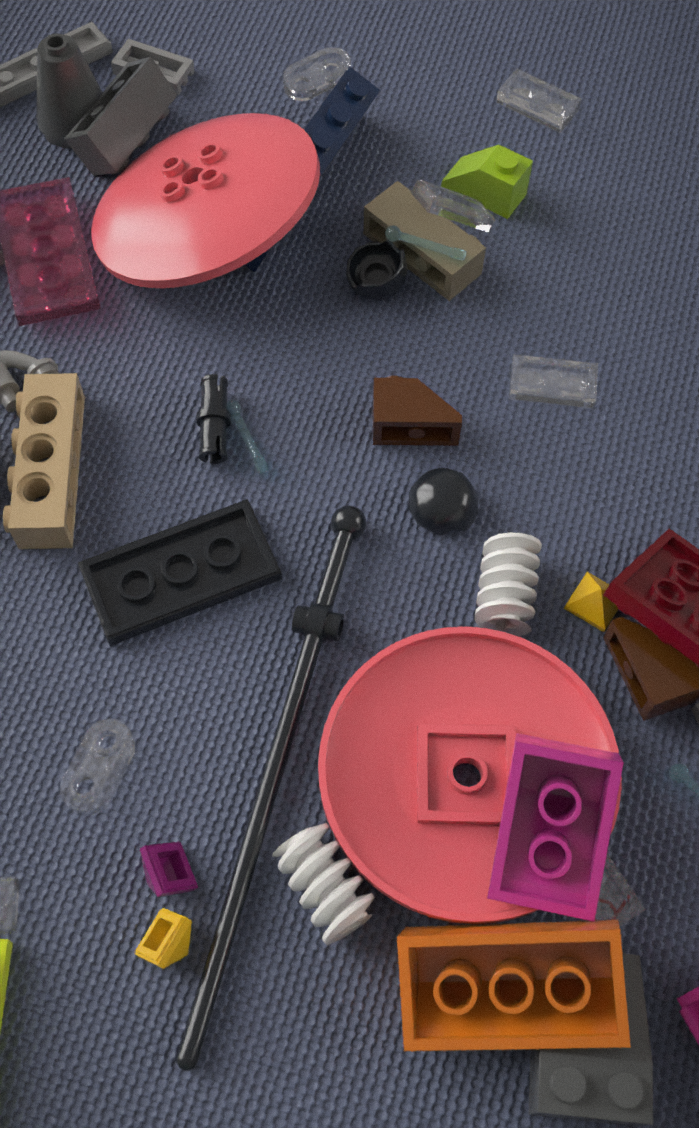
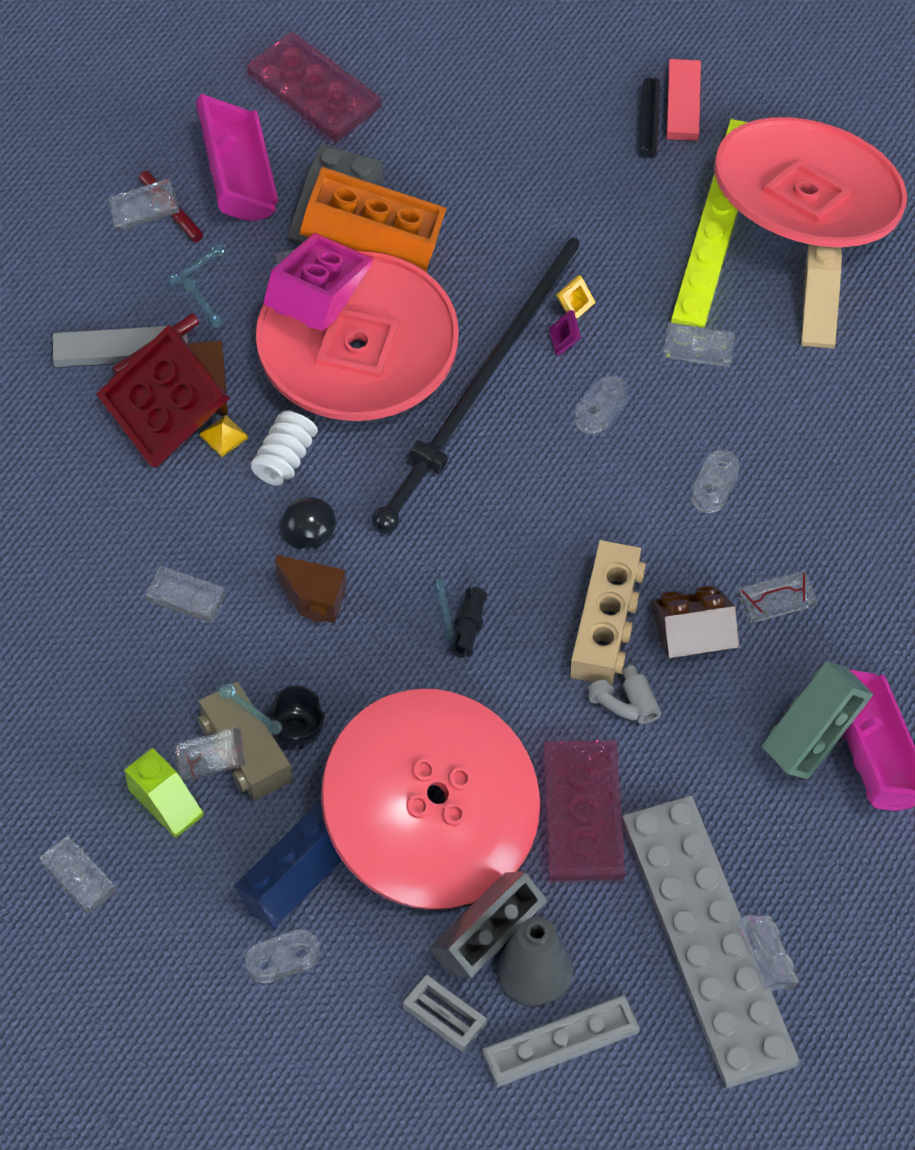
camera: 165 degrees left, 5 degrees down
(179, 571) = (520, 519): black tile -> none
(324, 883) = (470, 302): white piece -> none

